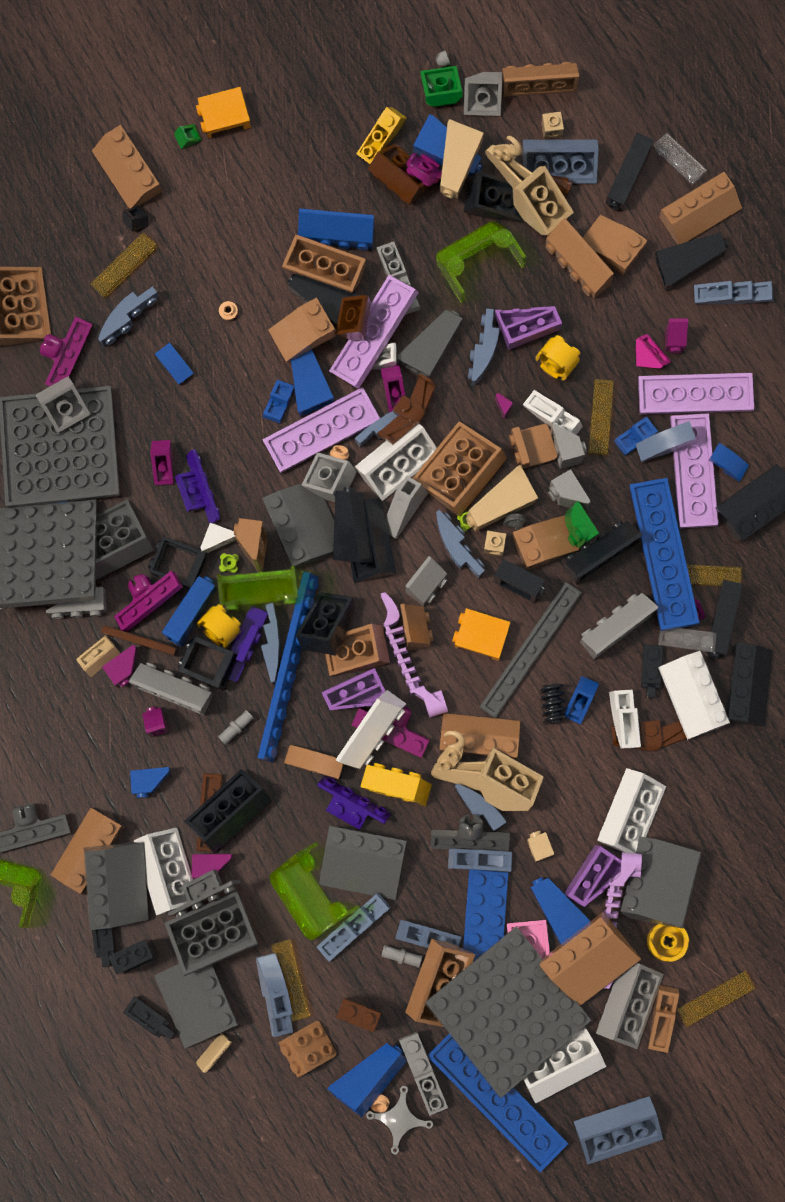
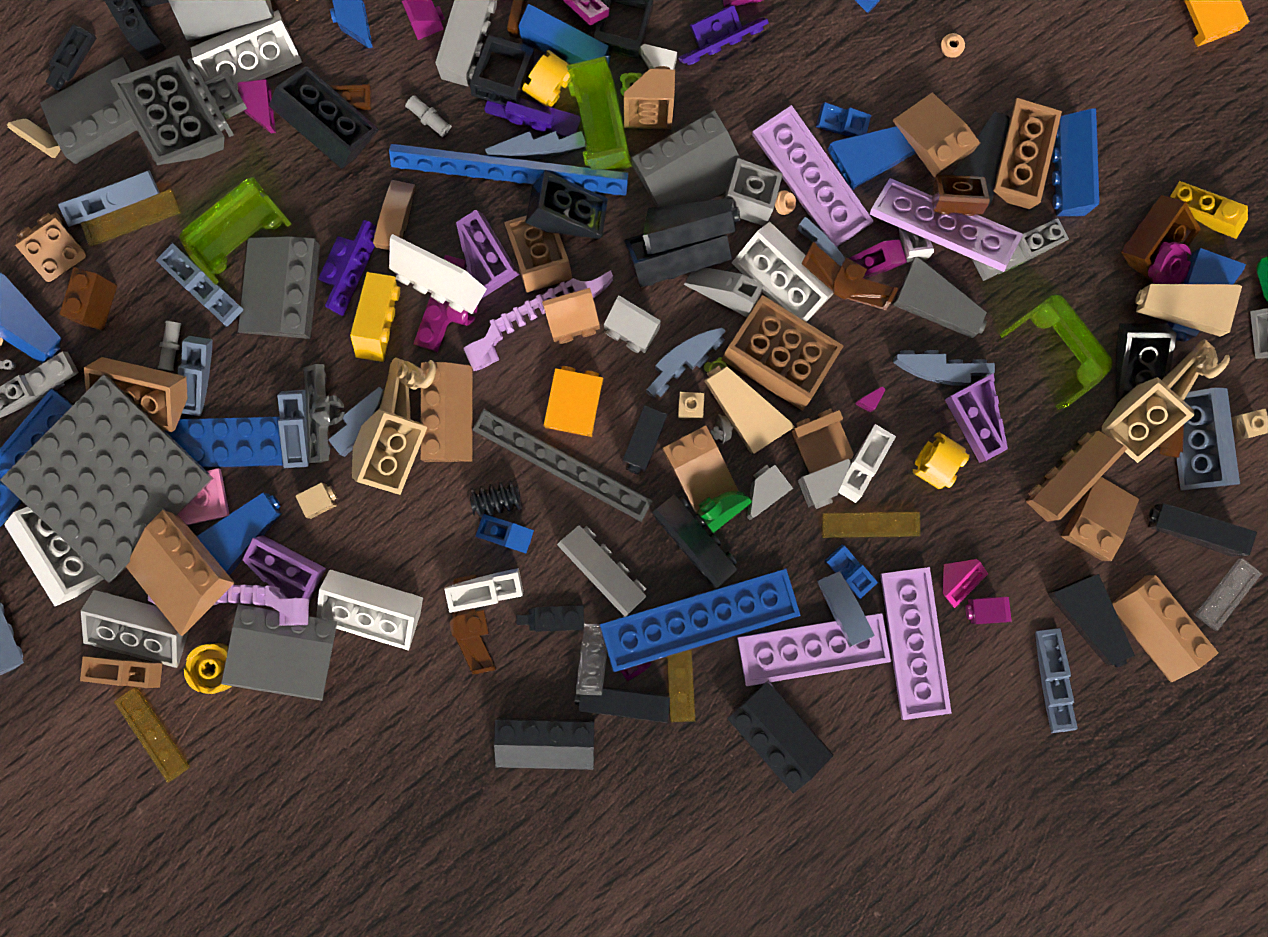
camera: 75 degrees right, 5 degrees up
(693, 695) = (522, 674): white slope -> none
(729, 462) = (830, 693): blue slope -> none

